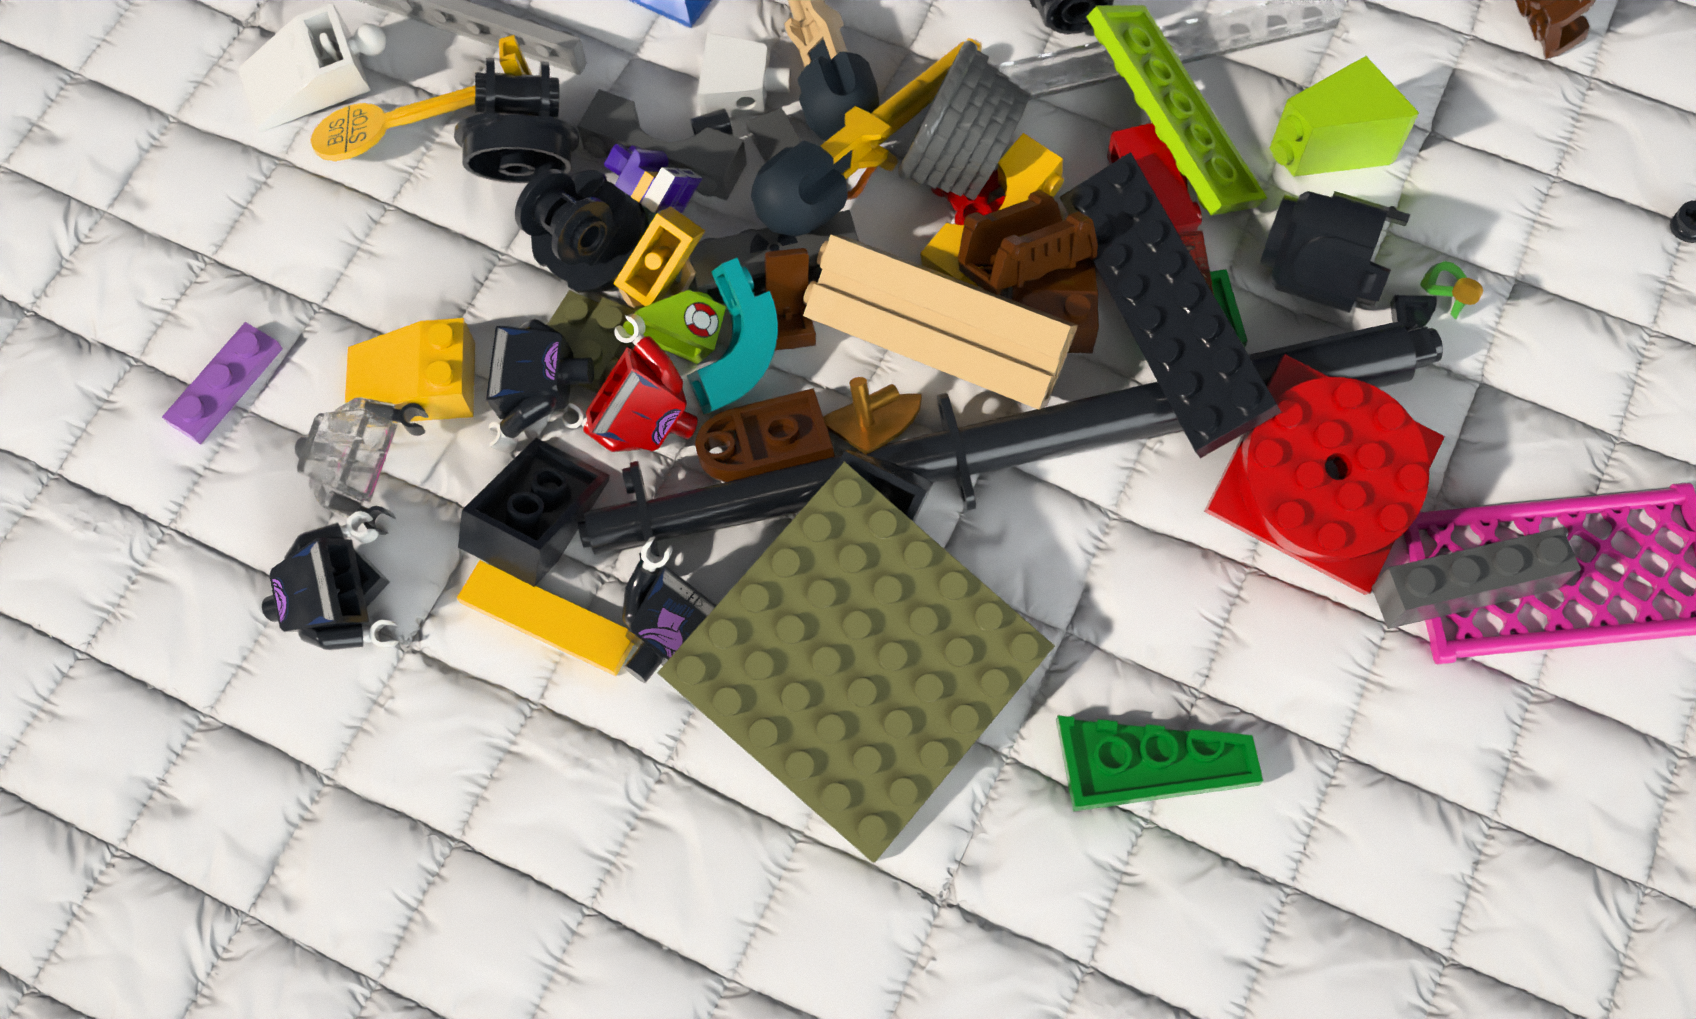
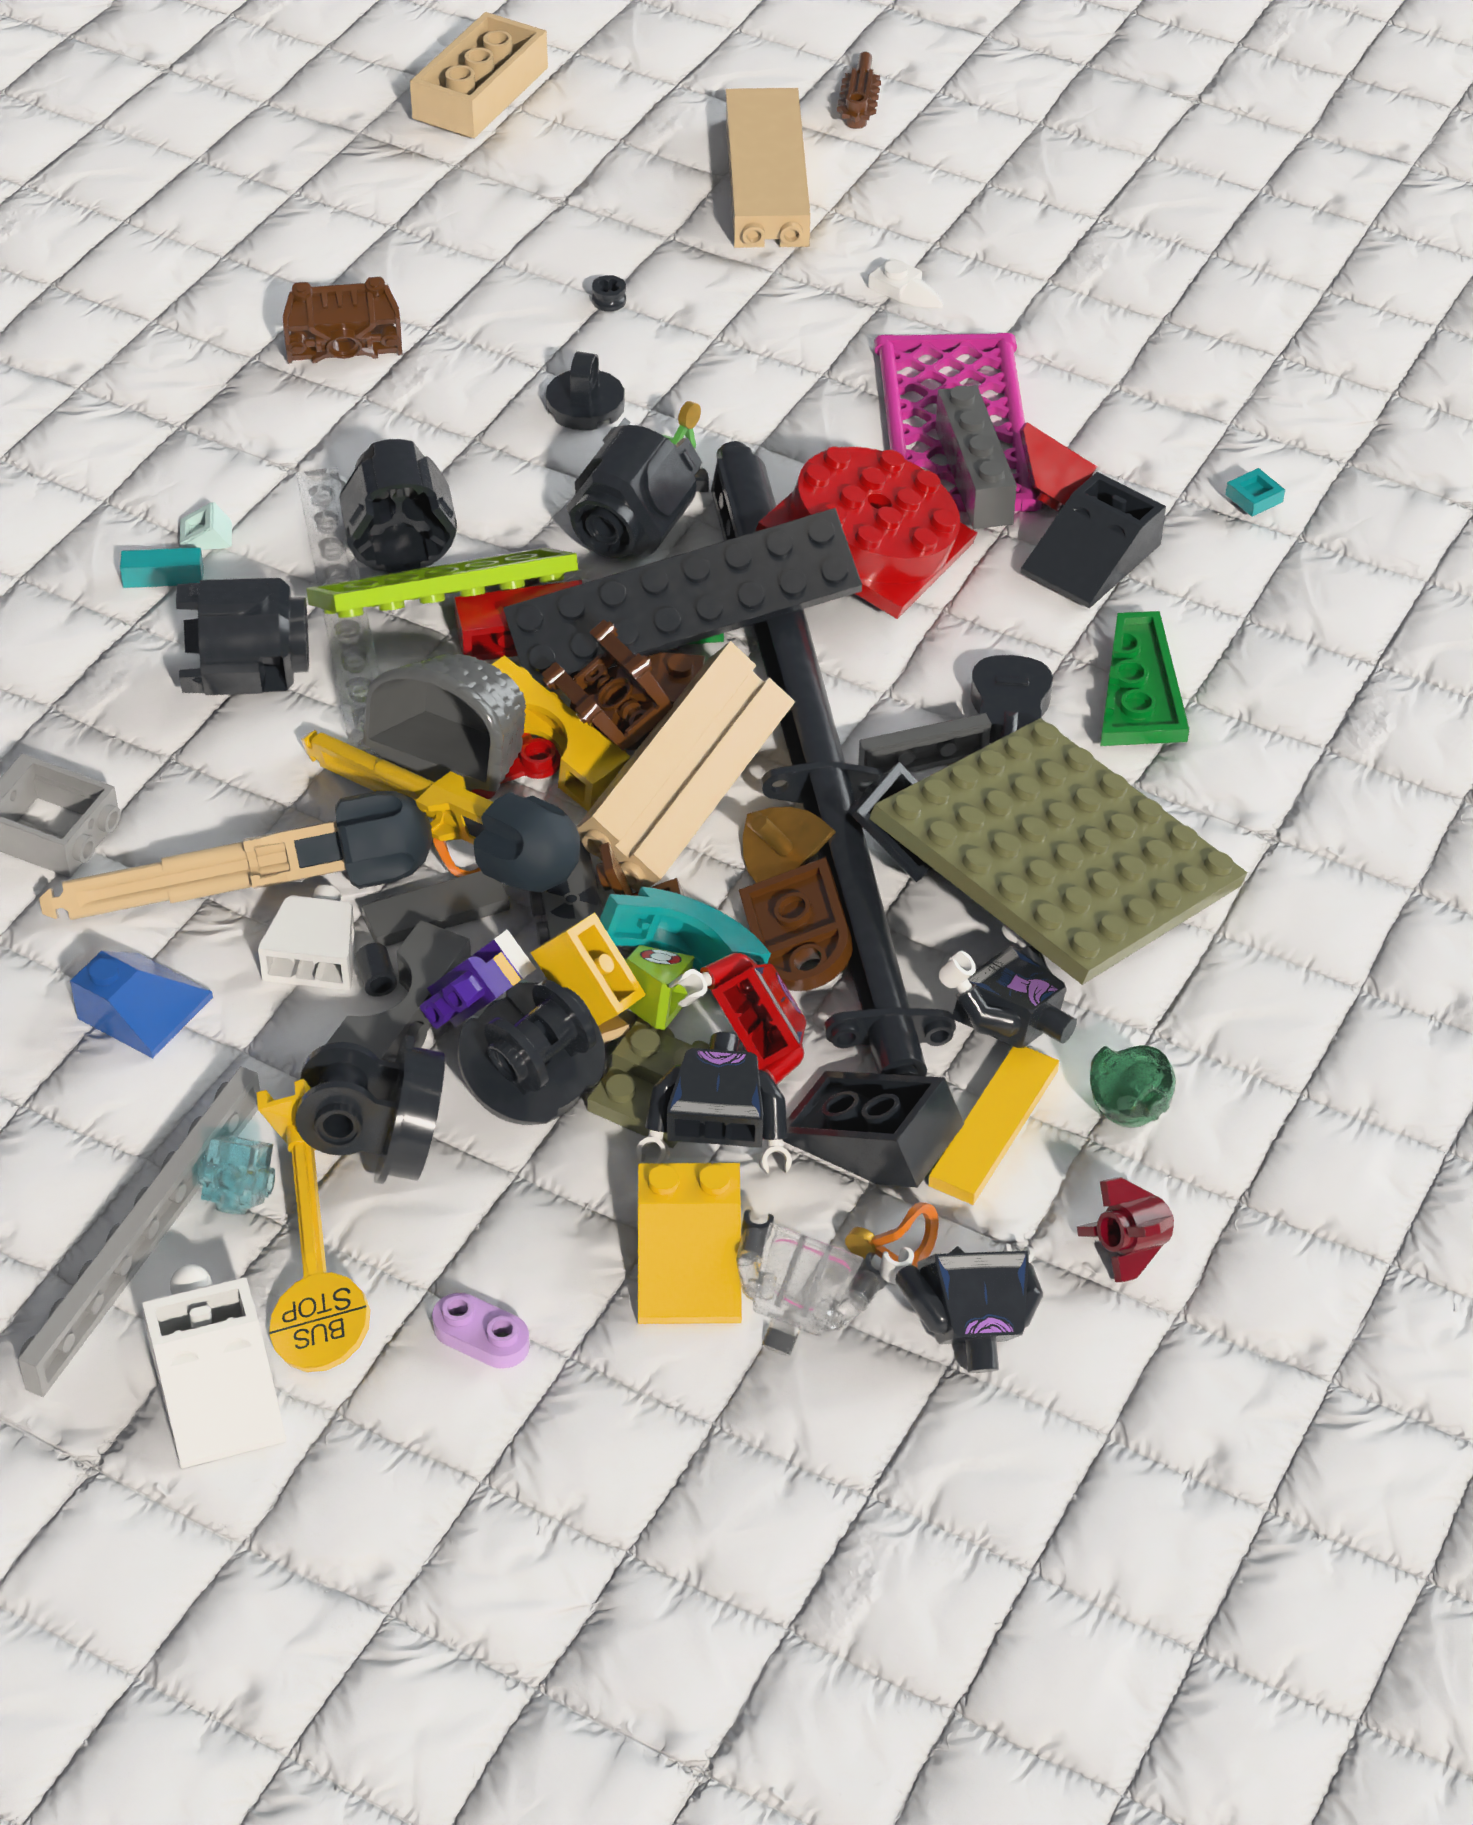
camera: 90 degrees left, 20 degrees down
(222, 383) = (676, 1445): medium lavender plate -> none
(345, 237) = (477, 1330): none -> lavender plate
(396, 524) = (862, 1241): none -> orange piece
(401, 730) = (1132, 1226): none -> dark red brick
(473, 48) = (236, 1173): none -> clear light blue brick
(564, 732) = (1132, 1084): none -> clear green cap
(1020, 544) = (926, 745): none -> dark grey tile
(1114, 629) = (1010, 692): none -> black piece
(1269, 57) = (397, 508): none -> black piece
(1344, 123) = (475, 463): lime slope -> none
(1366, 712) = (1096, 540): none -> black slope
(1480, 663) = (1053, 467): none -> slope
(1506, 904) = (1255, 492): none -> teal plate
(1511, 214) = (585, 395): none -> black tile

